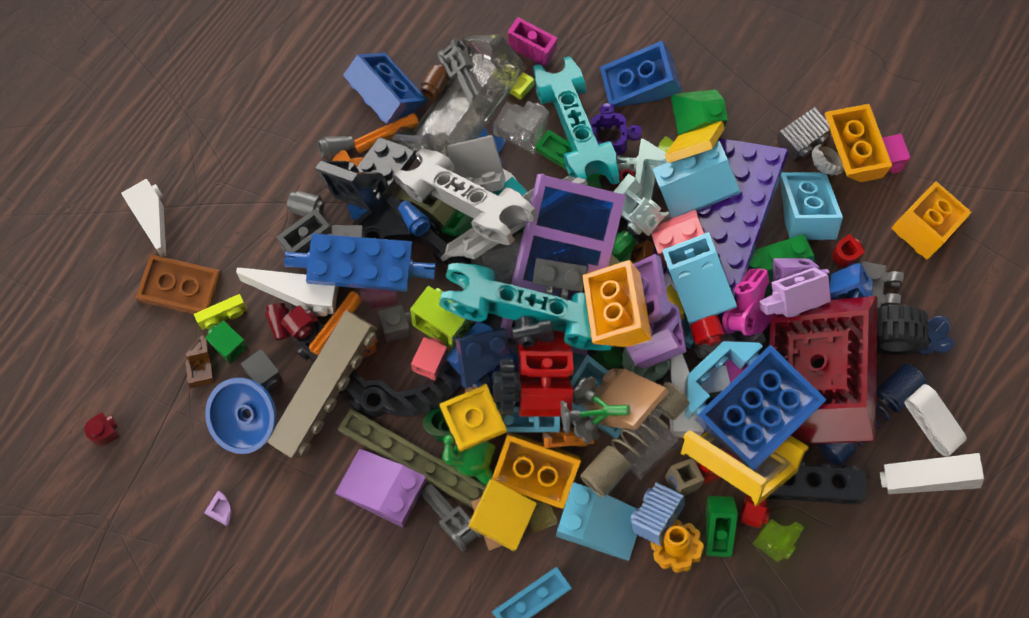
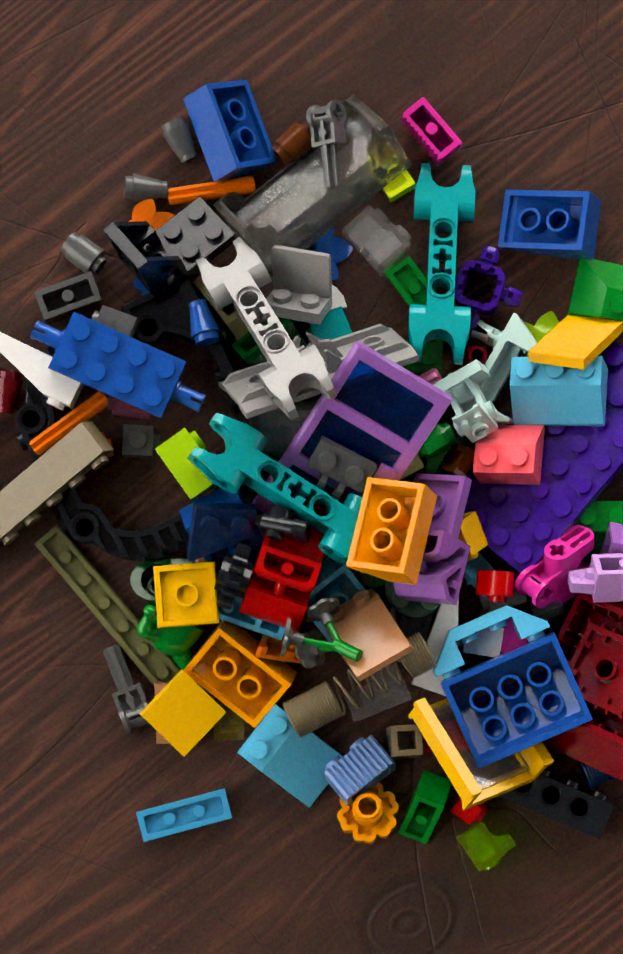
camera: 20 degrees right, 15 degrees up
(299, 322) = (28, 409): dark red plate -> none
(350, 104) = (179, 138): none -> dark grey cone
(382, 487) = (61, 628): medium lavender slope -> none
(429, 358) = (163, 503): coral brick -> none
(699, 278) = (508, 520): medium azure slope -> none

